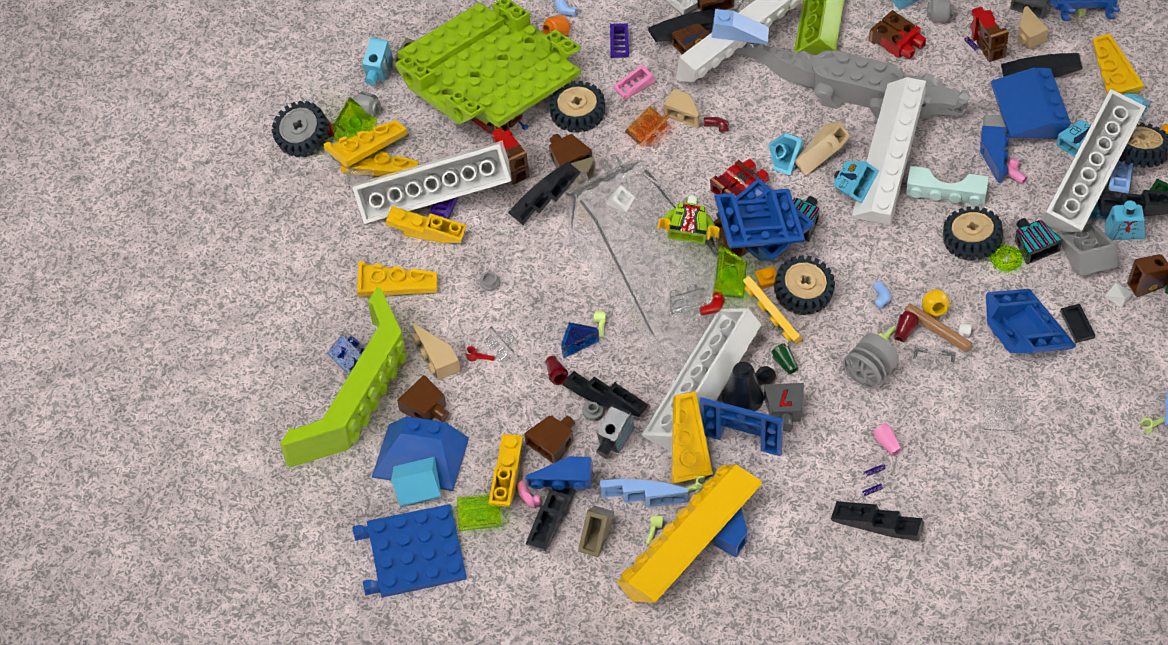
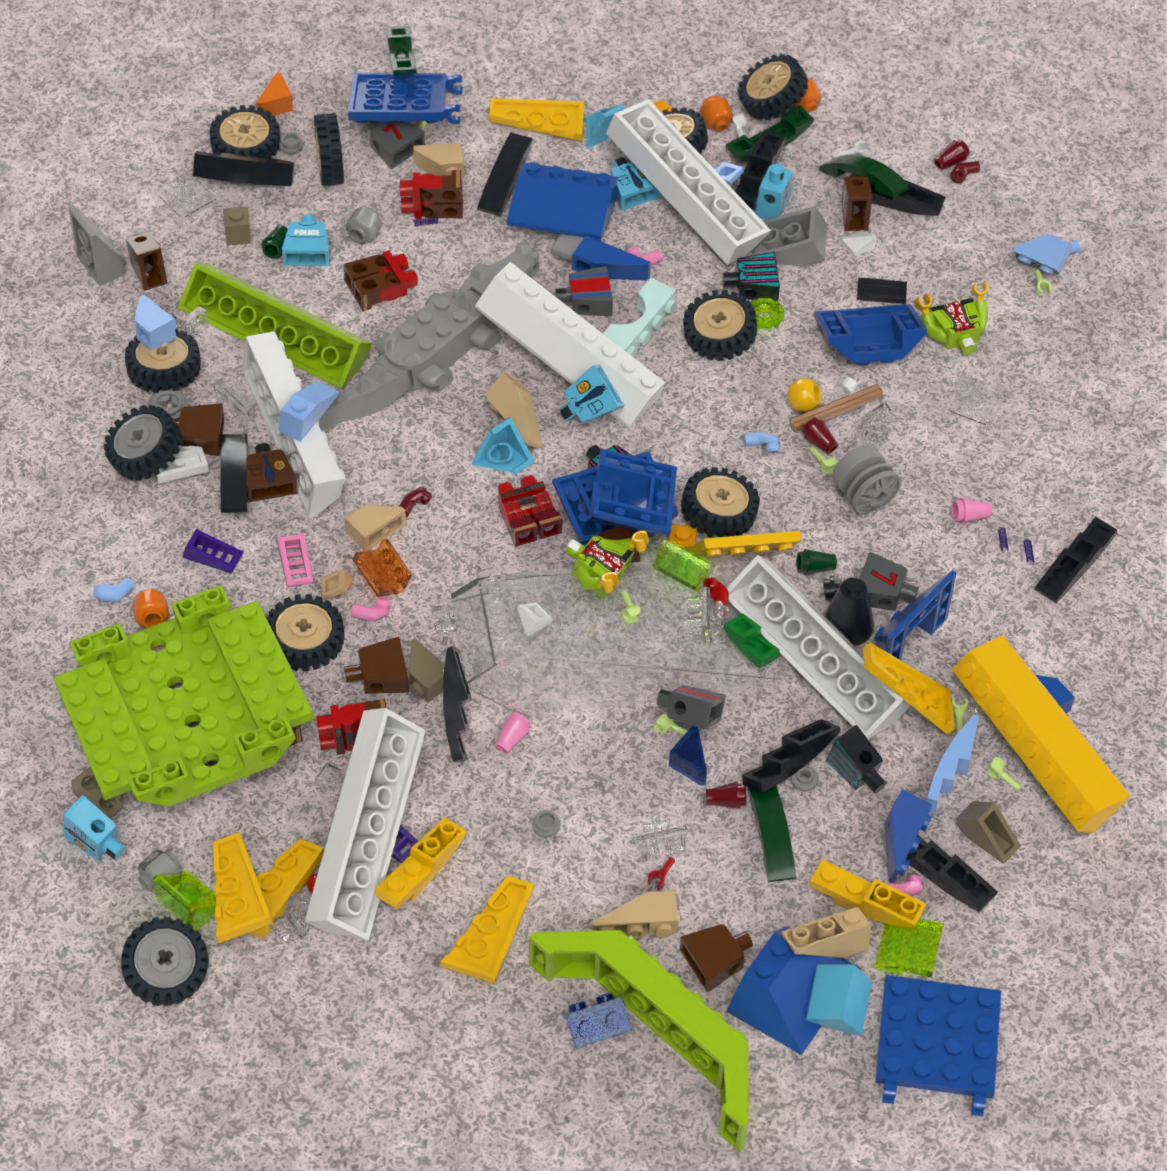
camera: 75 degrees left, 0 degrees up
(460, 458) = (831, 936): none -> tan slope
(537, 403) = (773, 834): none -> dark green slope
(551, 238) = (512, 731): none -> bright pink cone
(551, 437) = (833, 832): reddish brown torso -> none
(613, 136) = (372, 613): none -> bright pink arm
(615, 325) = (693, 706): none -> dark grey torso
(627, 109) = (335, 584): none -> tan slope
(662, 257) = (631, 611): none -> yellowish green hand
(686, 338) = (748, 639): none -> green slope
(958, 150) = (588, 292): none -> dark grey torso
(1069, 376) = (956, 322): none -> torso

